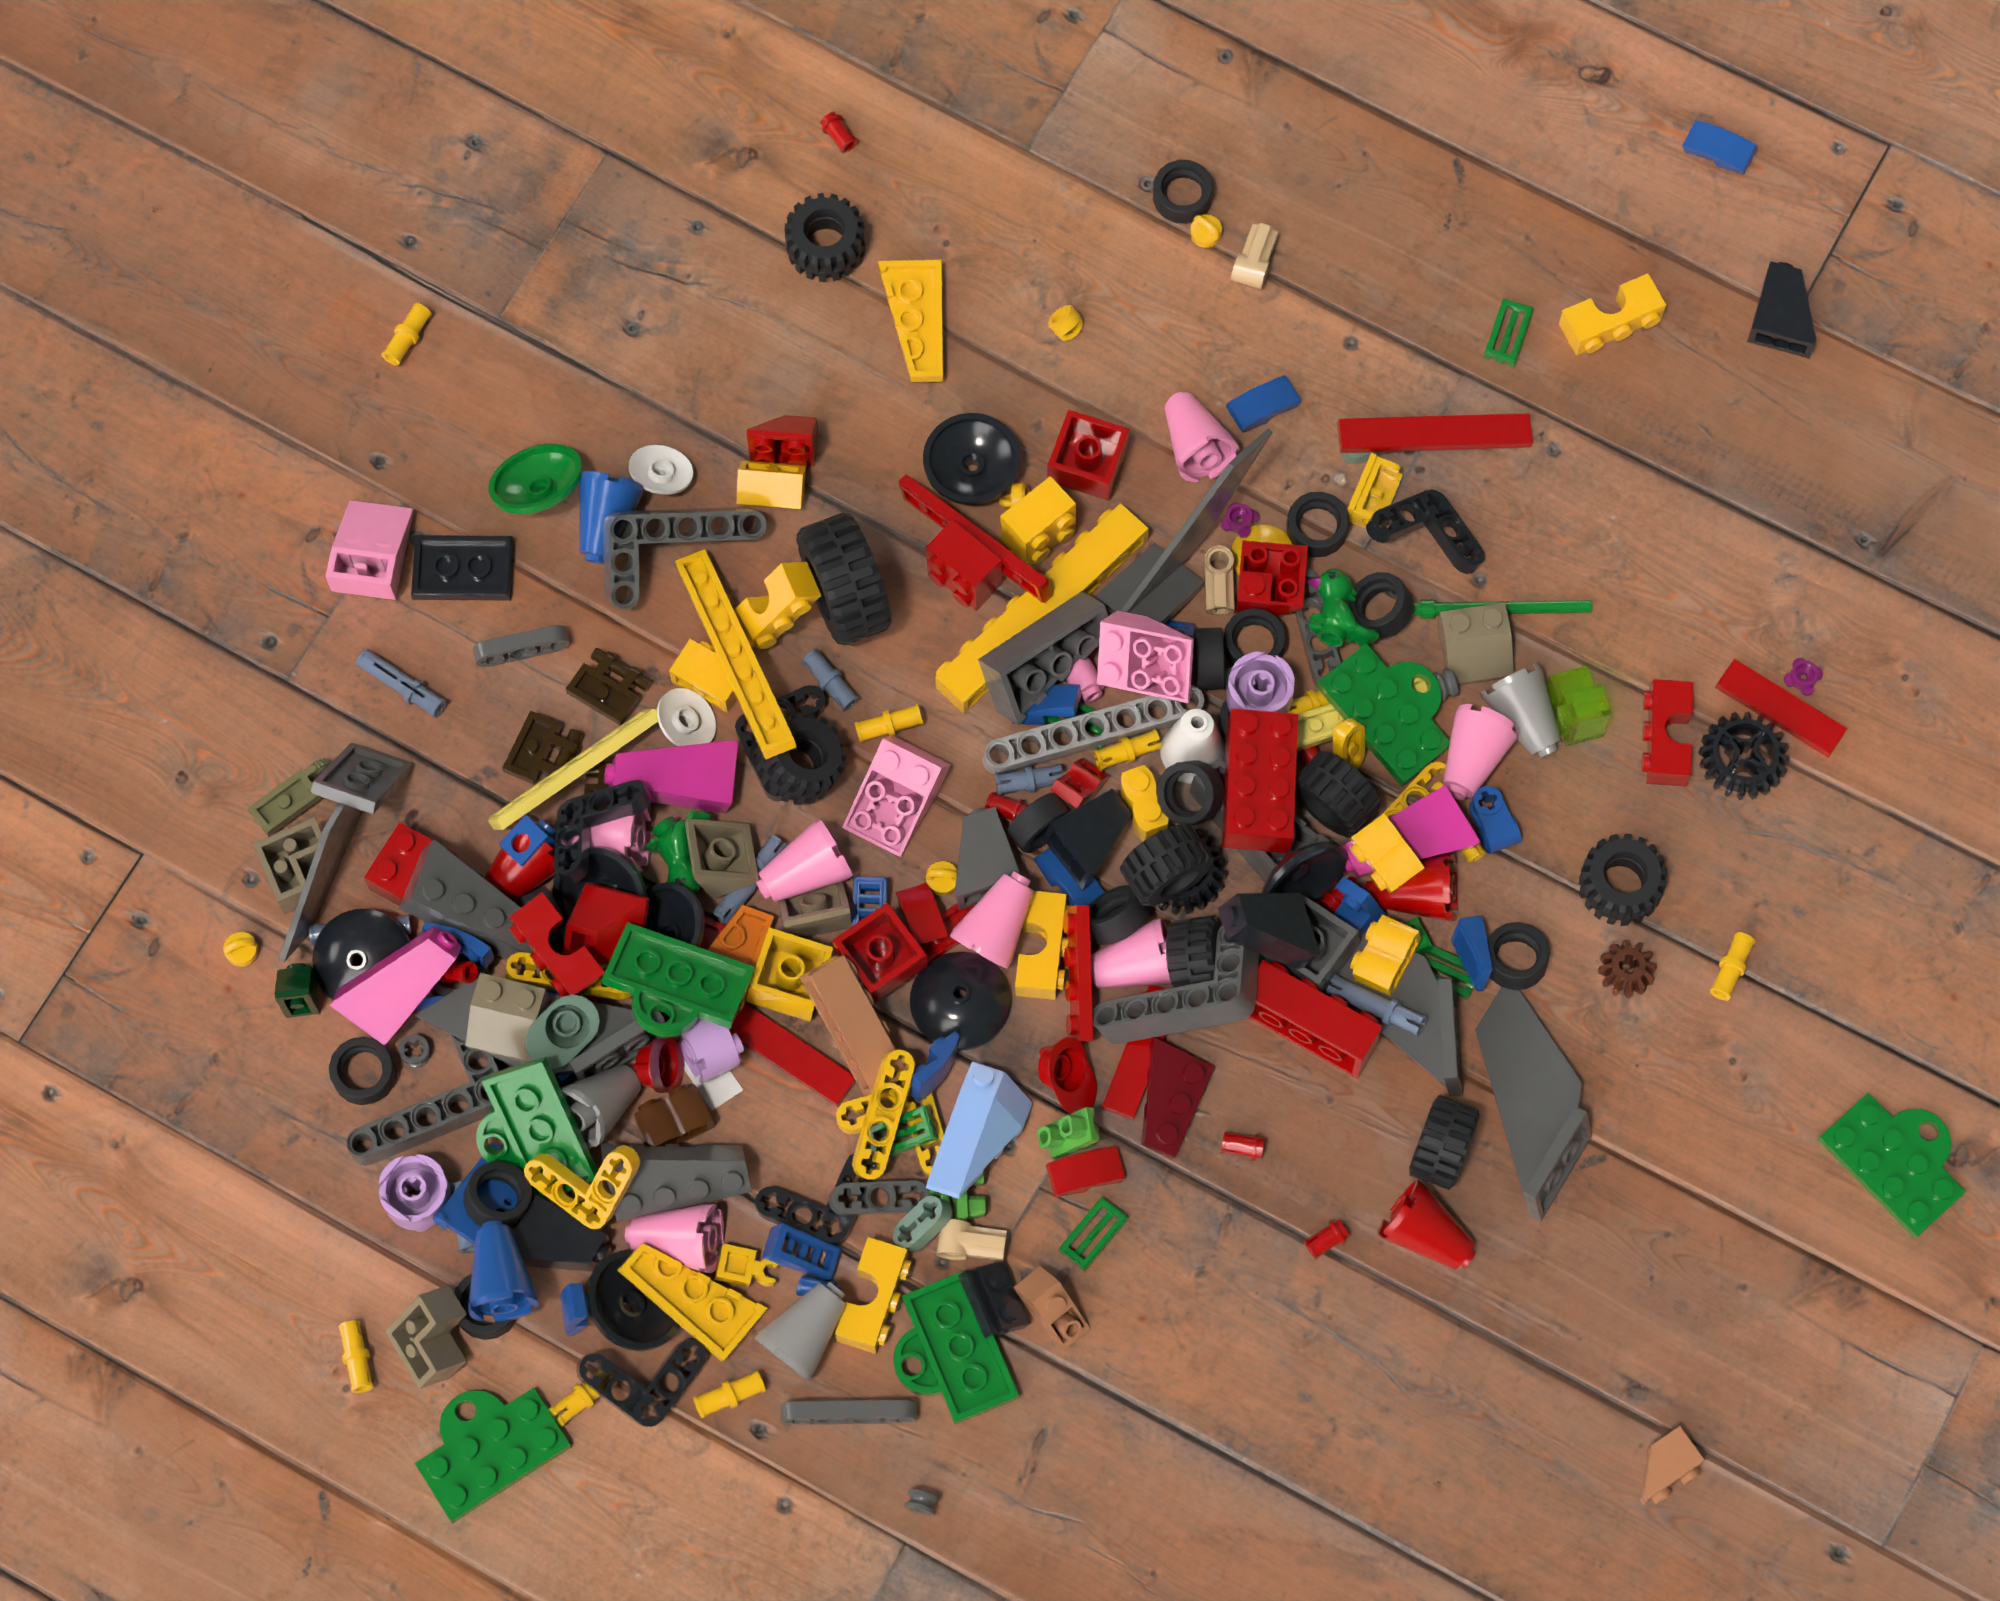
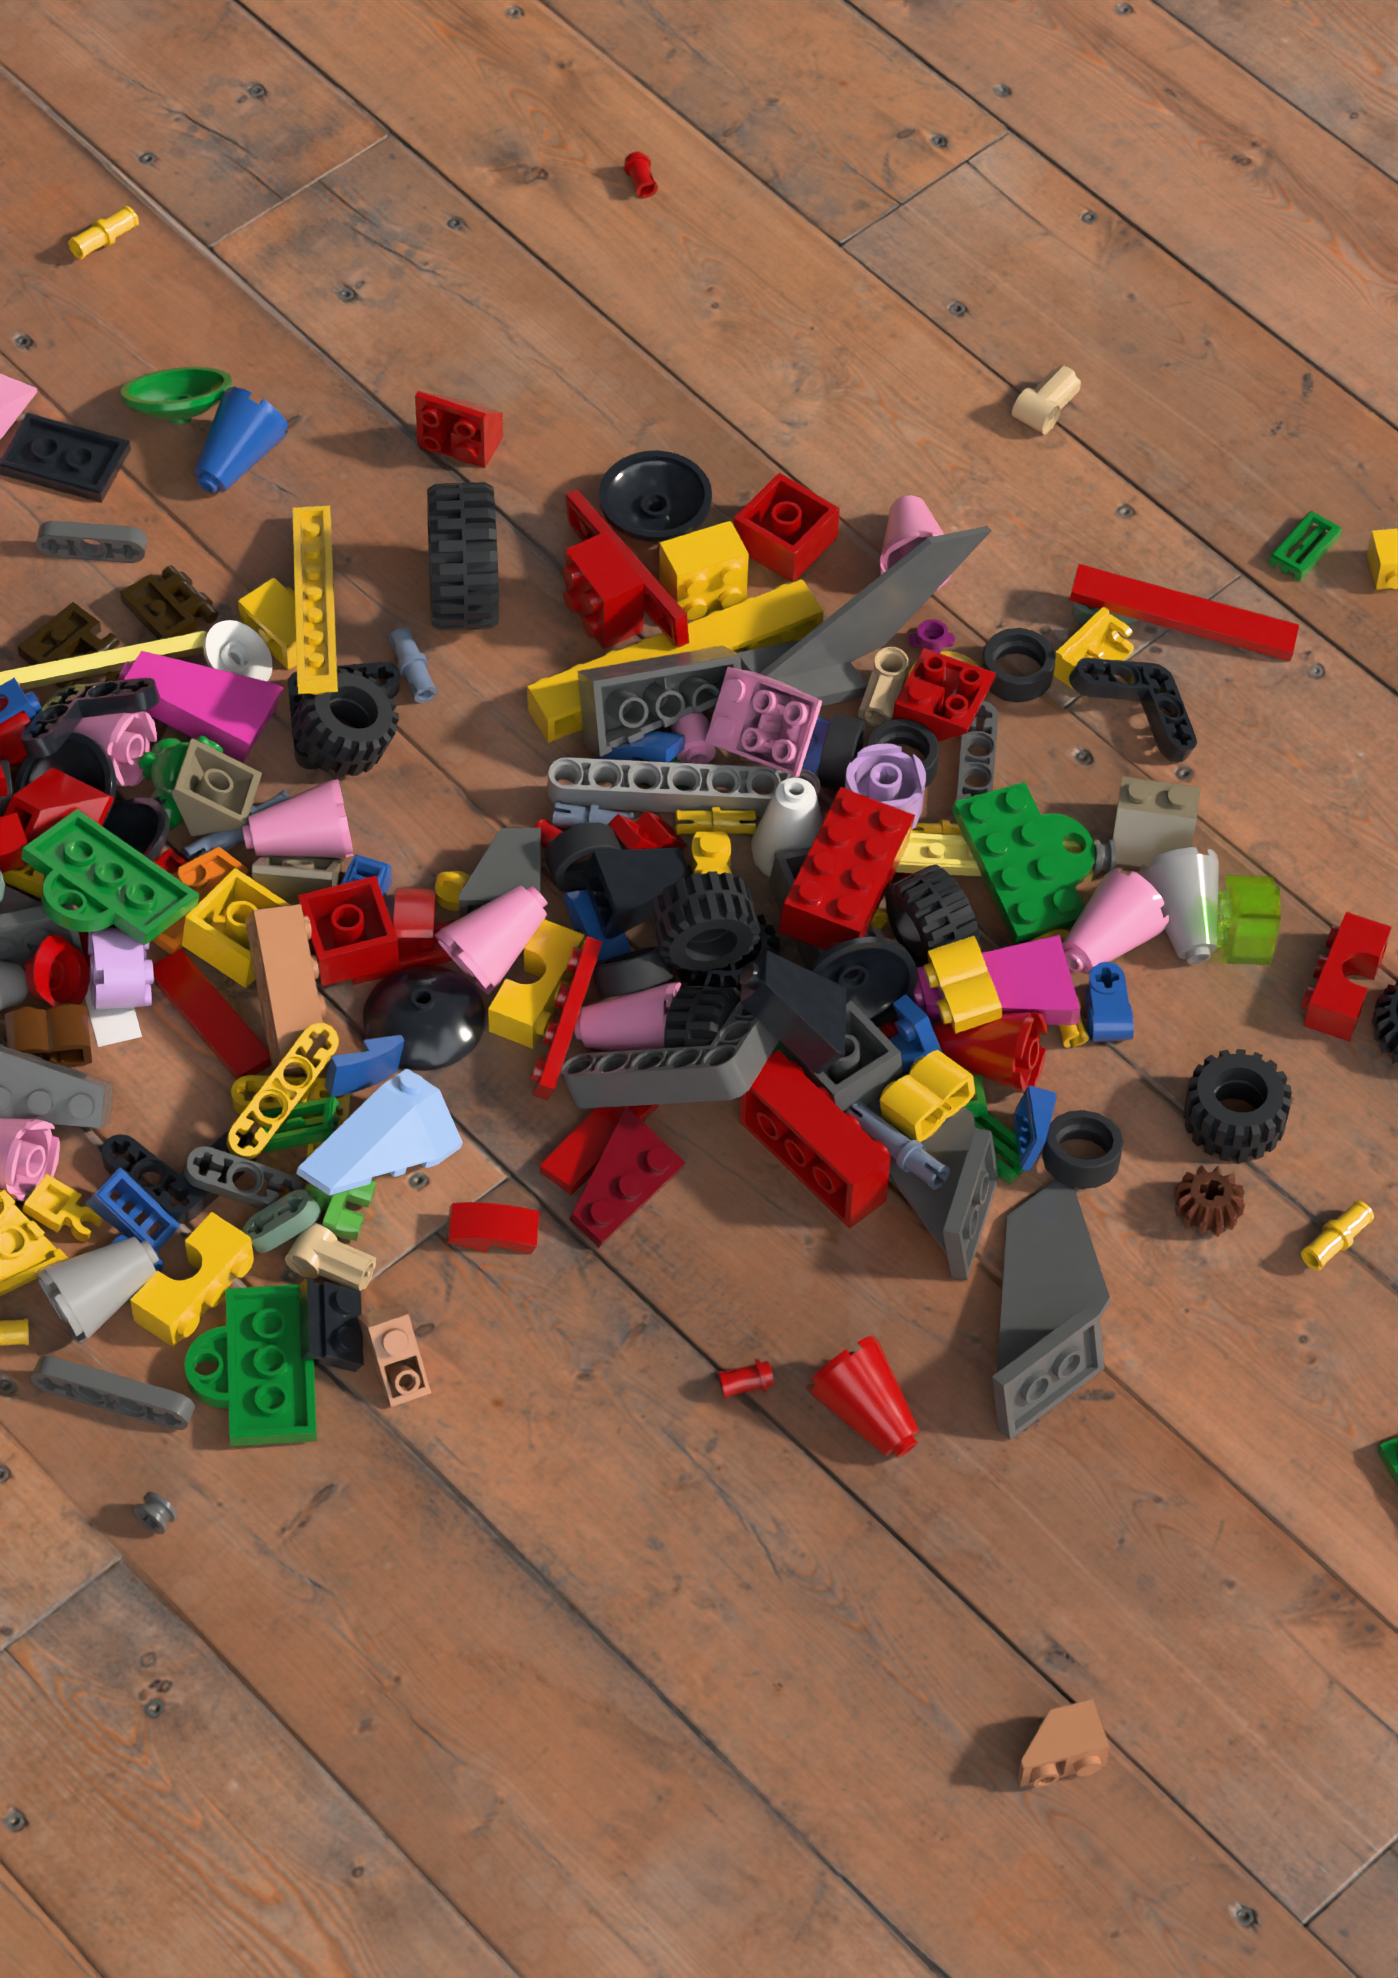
camera: 15 degrees right, 15 degrees down
(661, 469) = (315, 420): white dish -> none
(667, 533) = (295, 474): dark grey beam -> none
(771, 484) = (425, 464): yellow hinge -> none
(790, 596) = (396, 554): yellow arch -> none
(819, 215) = (584, 258): black tyre -> none
(888, 723) = (459, 723): yellow pin -> none
(895, 795) = (437, 792): bright pink slope -> none
(916, 309) = (655, 355): yellow wing -> none
(1066, 320) = (811, 402): yellow tile -> none
(1068, 1074) = (514, 1119): red piece -> none
(1069, 1133) = (490, 1177): bright green hips -> none
(1074, 1256) = (479, 1301): green tile -> none
(1182, 169) = (991, 340): black tyre -> none
(1206, 231) = (1003, 364): yellow tile -> none
(1213, 789) = (751, 844): black tyre -> none
(1243, 1145) = (687, 1253): red pin -> none
(1263, 402) = (1007, 533): blue slope -> none
(1336, 619) = (1001, 751): green animal -> none
(1349, 741) = (970, 869): yellow plate -> none
(1400, 613) = (1064, 772): black tyre -> none
(1428, 608) = (1111, 782): green bar -> none
(1444, 1142) = (921, 1307): black tyre -> none

